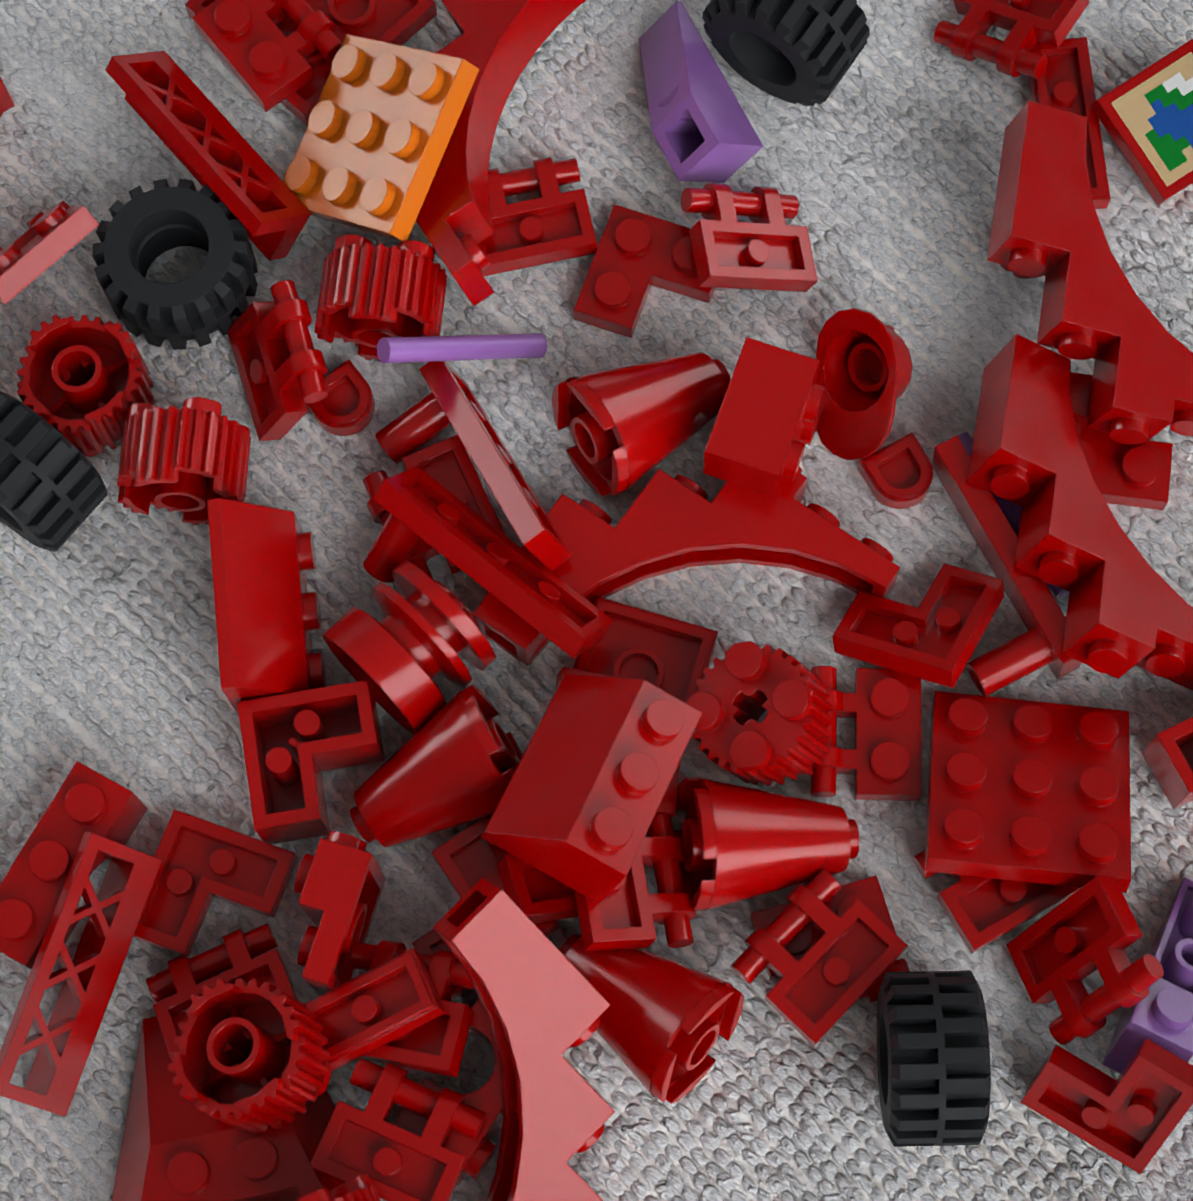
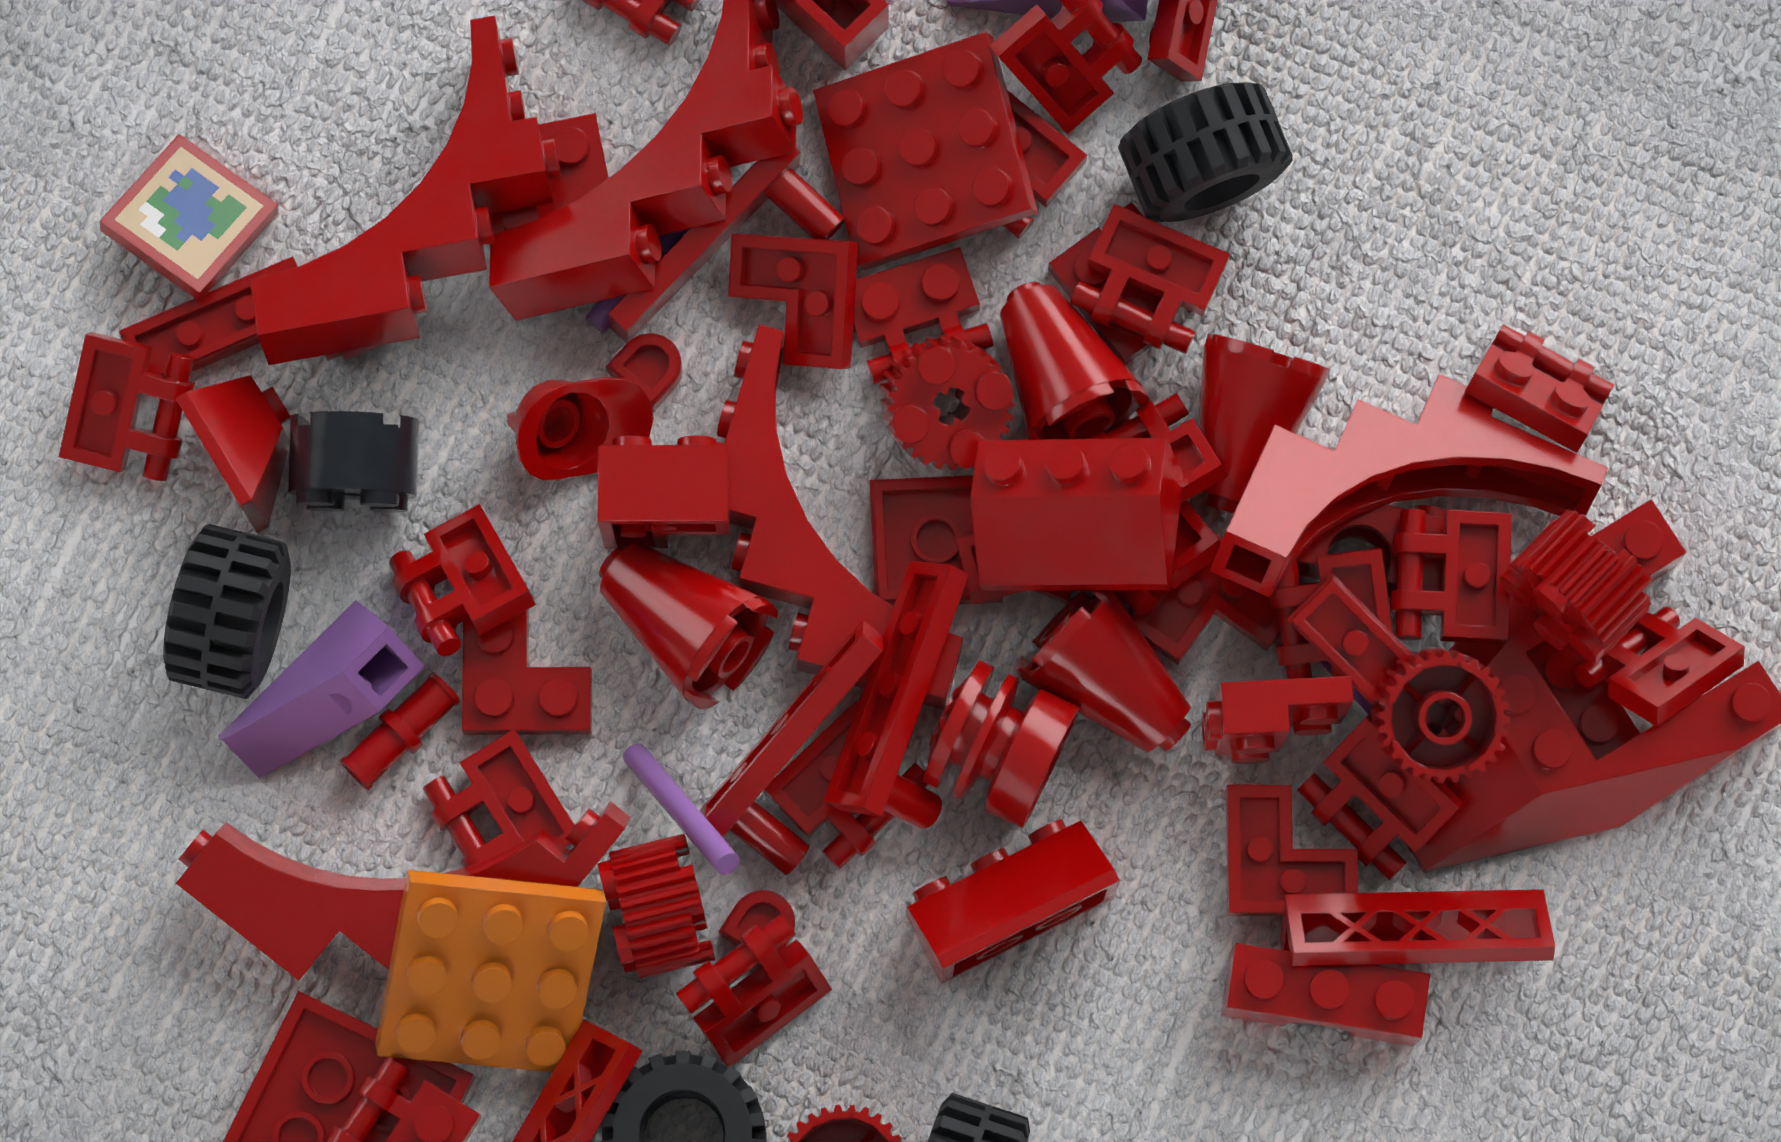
camera: 115 degrees left, 5 degrees up
(182, 458) = (895, 1034): red brick -> none
(294, 740) = (1131, 821): red brick -> none
(633, 154) = (400, 731): none -> red pin
(892, 176) = (353, 458): none -> black brick
(937, 88) = (243, 439): none -> red slope

